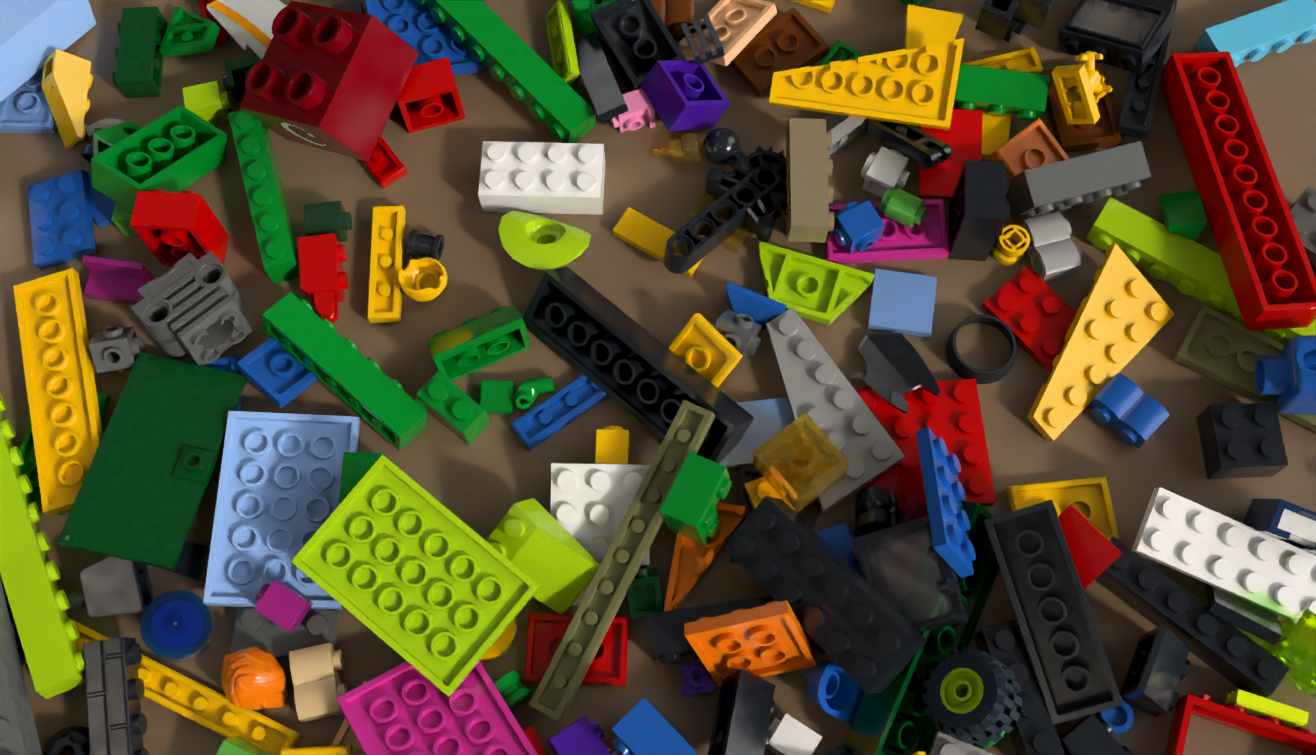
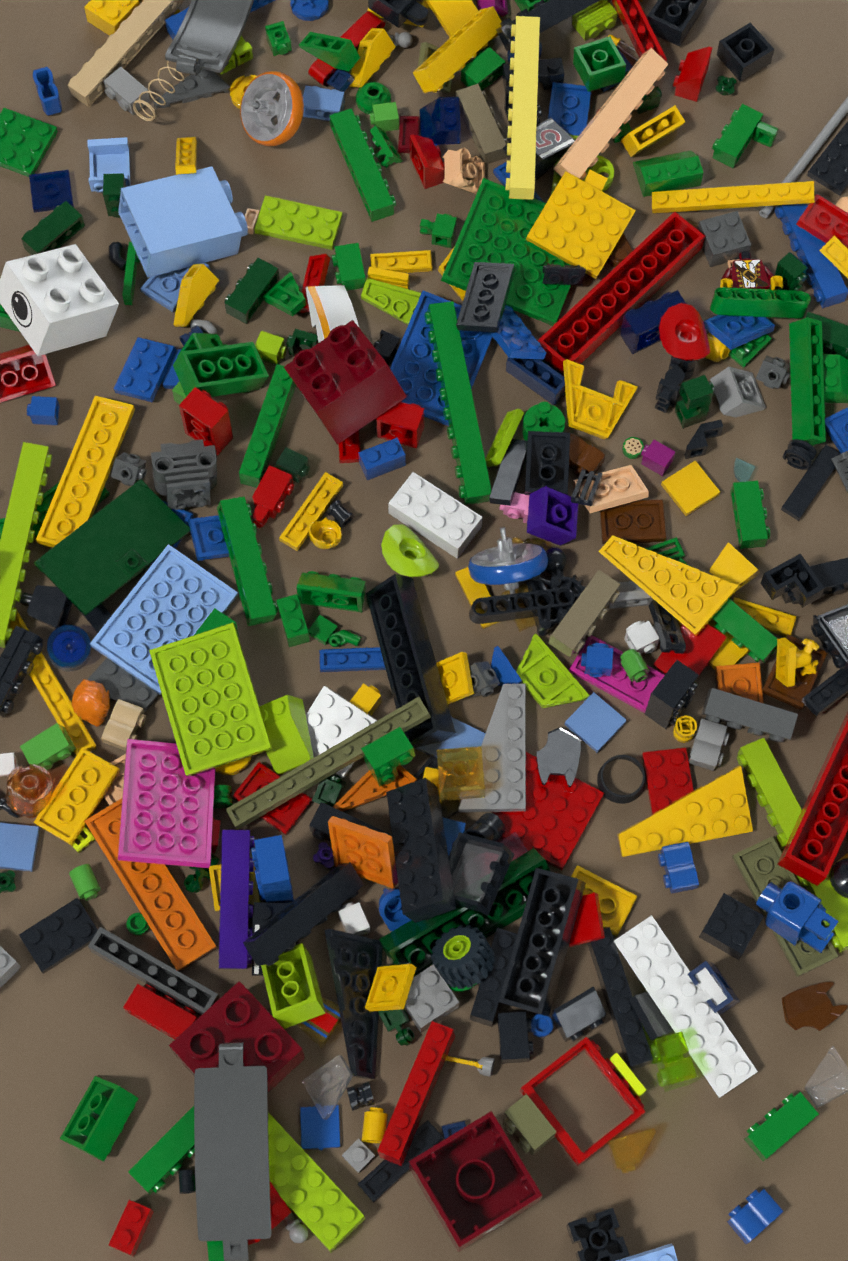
camera: 30 degrees right, 0 degrees up
(115, 280) = (153, 427): magenta panel -> none
(282, 605) = (130, 671): magenta brick -> none
(433, 151) = (382, 458): none -> blue brick
(674, 177) = (508, 563): none -> wheel
(944, 503) = (522, 844): blue plate -> none
(1183, 213) = (801, 775): green slope -> none

